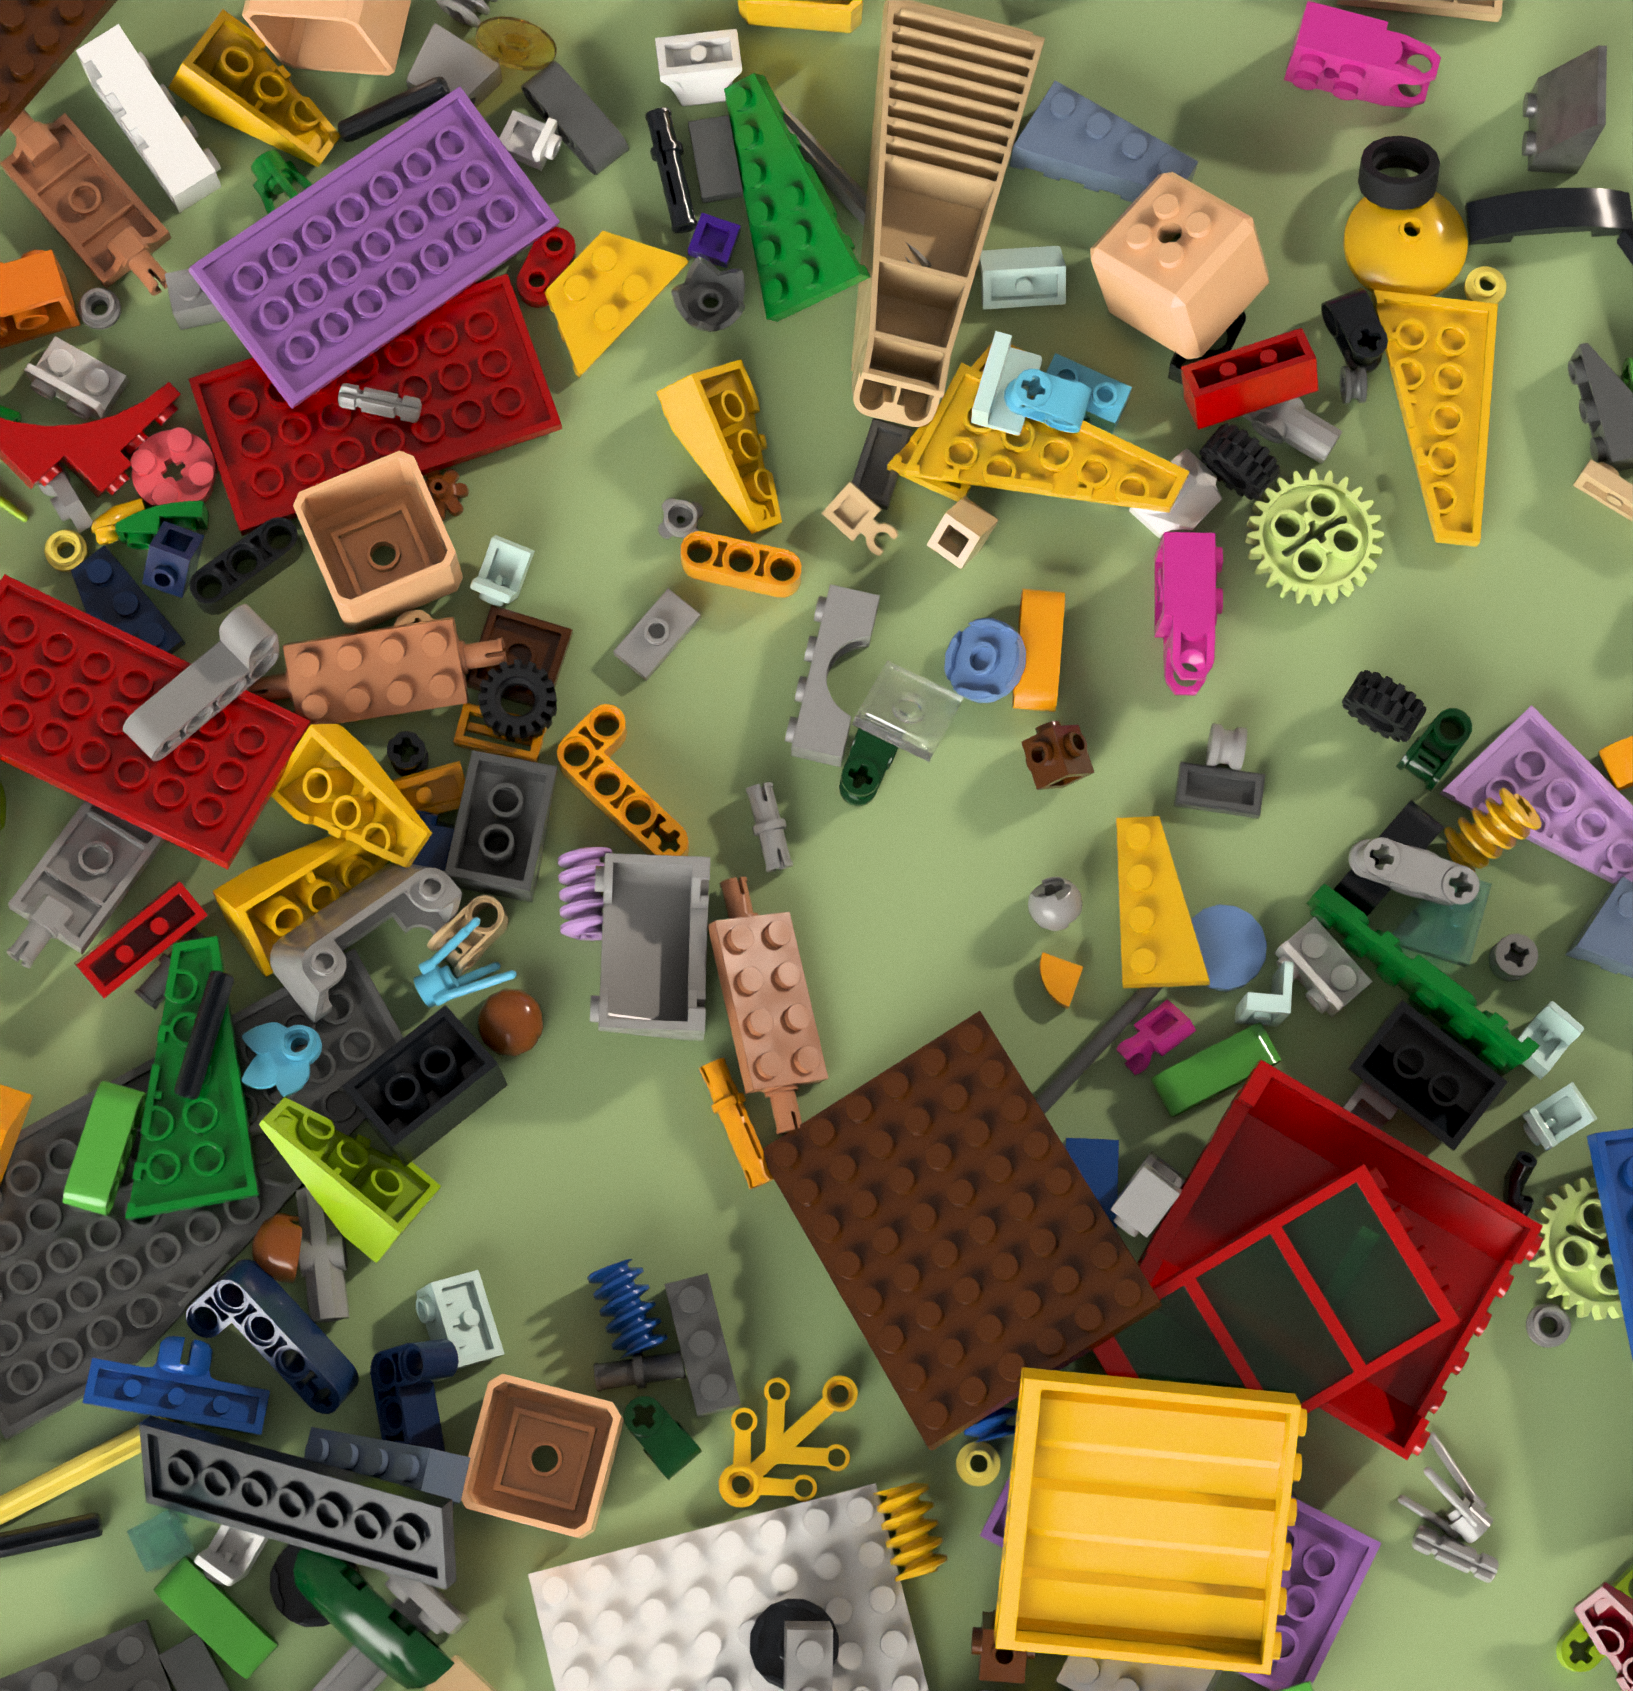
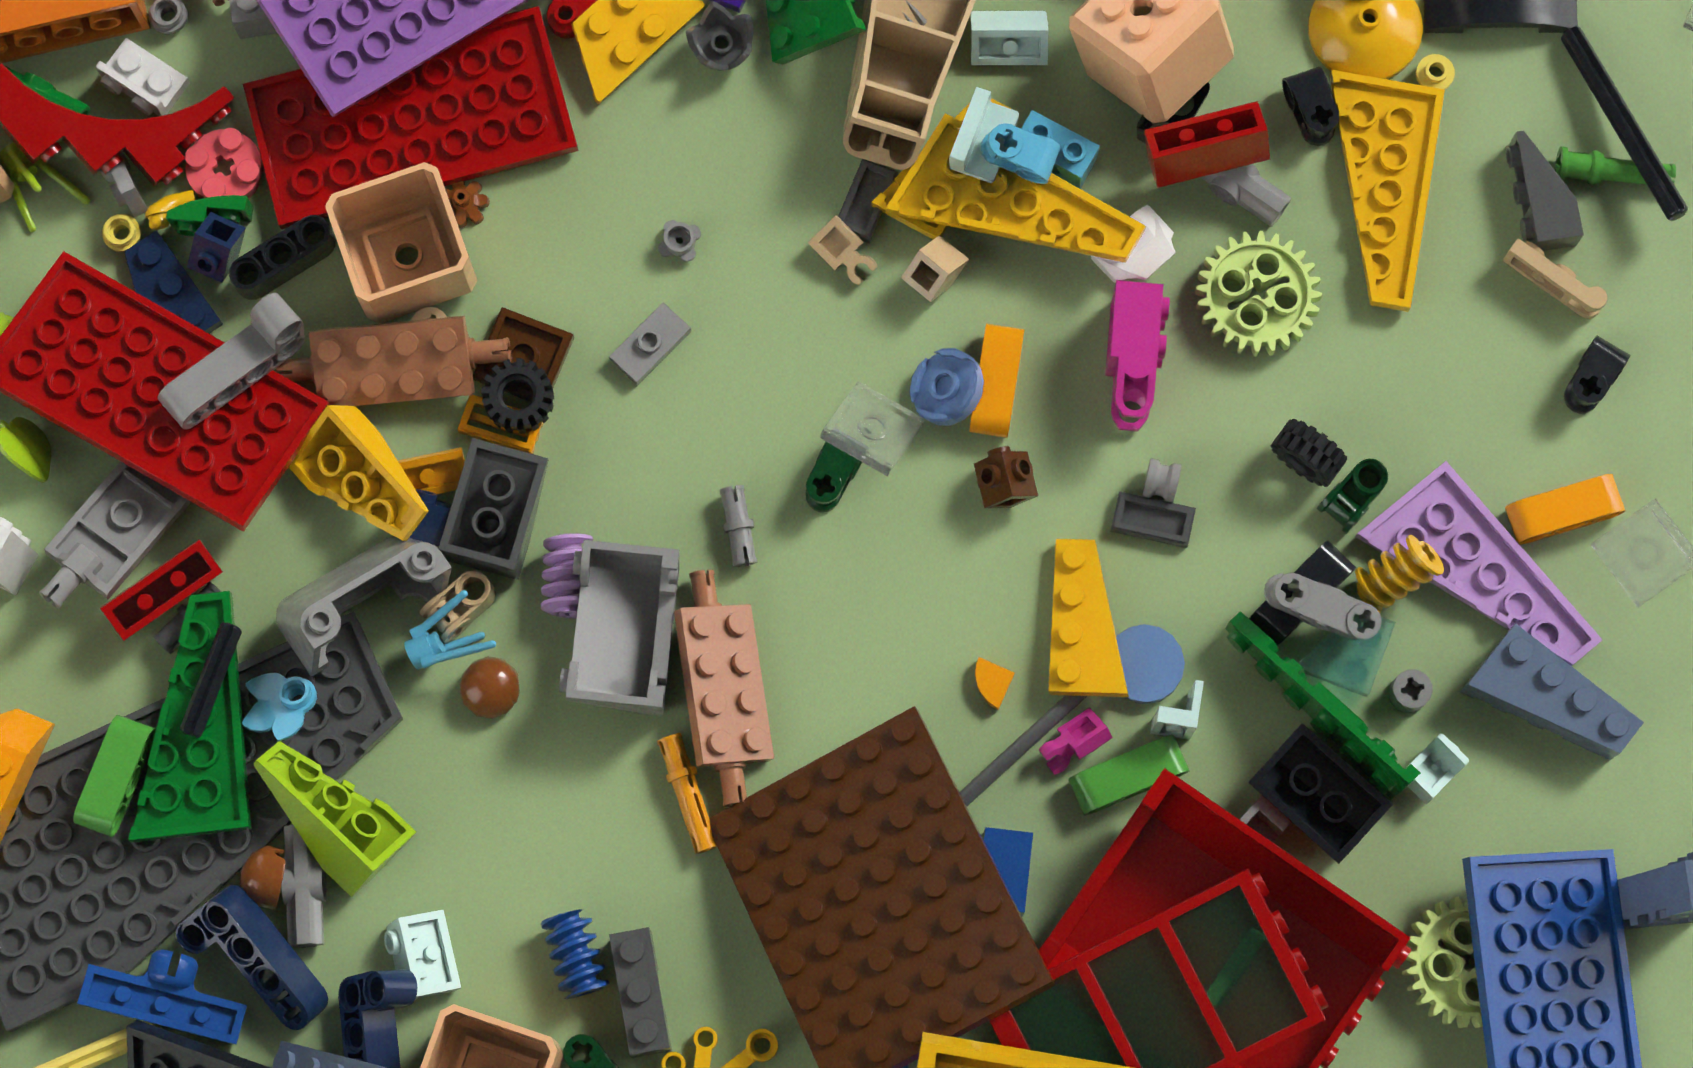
camera: 10 degrees right, 0 degrees up
(289, 890) = (298, 554): yellow wedge -> none
(379, 402) = (413, 116): light grey axle -> none
(397, 747) = (407, 430): black bush -> none
(425, 1085) = (407, 739): black slope -> none
(502, 571) = (513, 277): light aqua bracket -> none
(629, 794) = (612, 487): light orange beam -> none
(639, 1371) = (581, 1011): dark grey pin -> none
(718, 427) = (720, 157): yellow wedge -> none
(726, 549) = (719, 270): light orange beam -> none
(845, 625) = (821, 347): light grey arch -> none
(1055, 903) = (993, 613): light grey piece -> none
(1147, 1196) = (1052, 884): light grey arch -> none
(1239, 461) = (1194, 219): black tyre -> none
(1322, 968) = (1234, 689): white bracket -> none
(1353, 384) = (1305, 155): dark grey bush -> none
(1515, 1180) = (1395, 897): black arm -> none
(1557, 1117) = (1439, 840): light aqua bracket -> none
(1561, 1322) = (1428, 1029): light grey plate -> none

